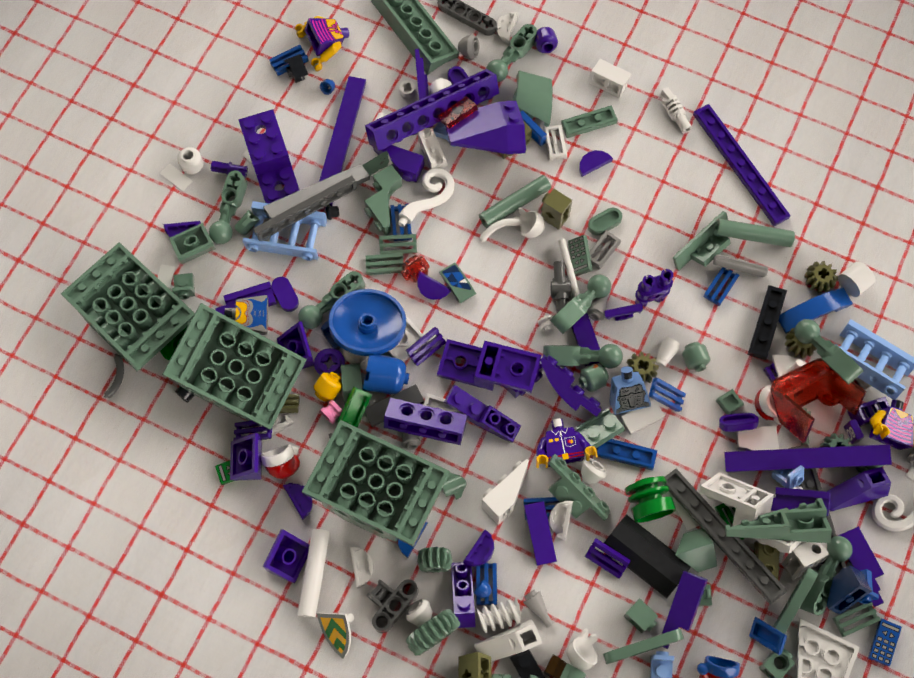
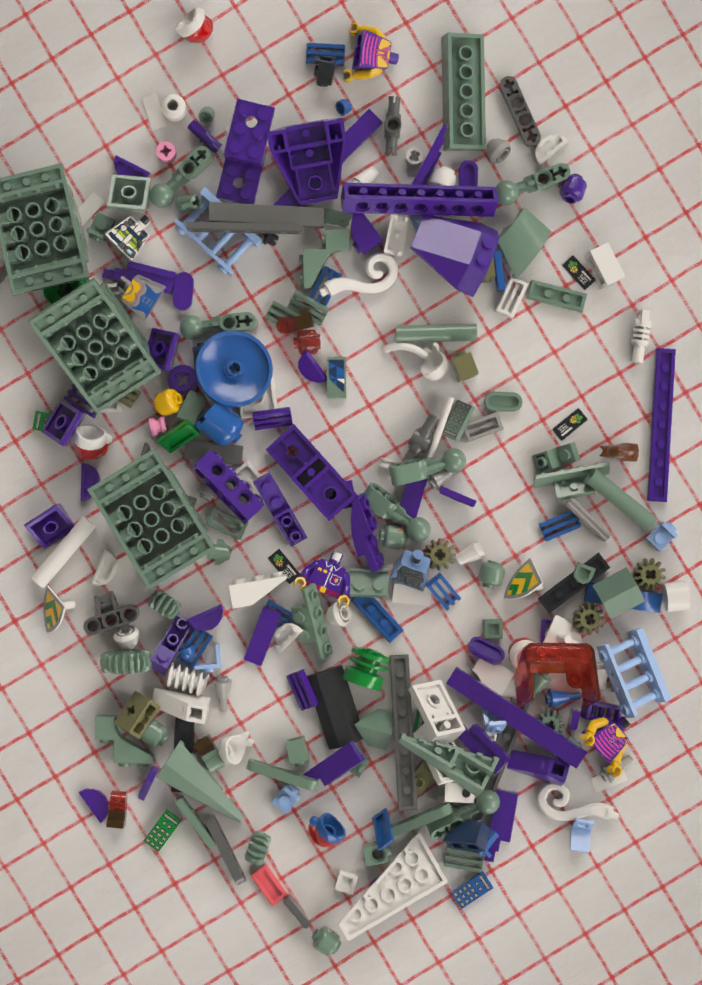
camera: 30 degrees right, 20 degrees up
(172, 95) = (195, 26): none -> piece
(204, 202) = (166, 156): none -> bright pink wheel
(211, 275) = (129, 235): none -> torso
(221, 155) = (206, 115): none -> sand green hinge
(326, 131) = (310, 158): none -> dark purple wedge
(379, 82) = (392, 116): none -> dark grey pin
(392, 262) = (289, 325): none -> leg
(444, 458) = (211, 516): none -> sand green tile
(457, 112) = (438, 218): clear red tile -> none
(509, 460) = (282, 563): none -> black sticker
(512, 591) = (209, 667): none -> light blue bracket
(593, 96) = (579, 272): none -> black sticker
(593, 161) = (532, 338): dark purple tile -> none
(654, 288) = (494, 497): dark purple pin -> none
(670, 207) = (570, 424): none -> black sticker
(678, 235) = (556, 457): none -> sand green slope
(725, 197) = (621, 452): none -> reddish brown animal
(727, 344) = (524, 581): none -> shield
(769, 307) = (583, 573): none -> sand green tile
(807, 242) = (662, 535): none -> light blue bracket
(808, 332) = (597, 654): sand green beam -> none
(810, 301) = (619, 593): none -> sand green slope
(826, 423) = (555, 698): none -> blue cone

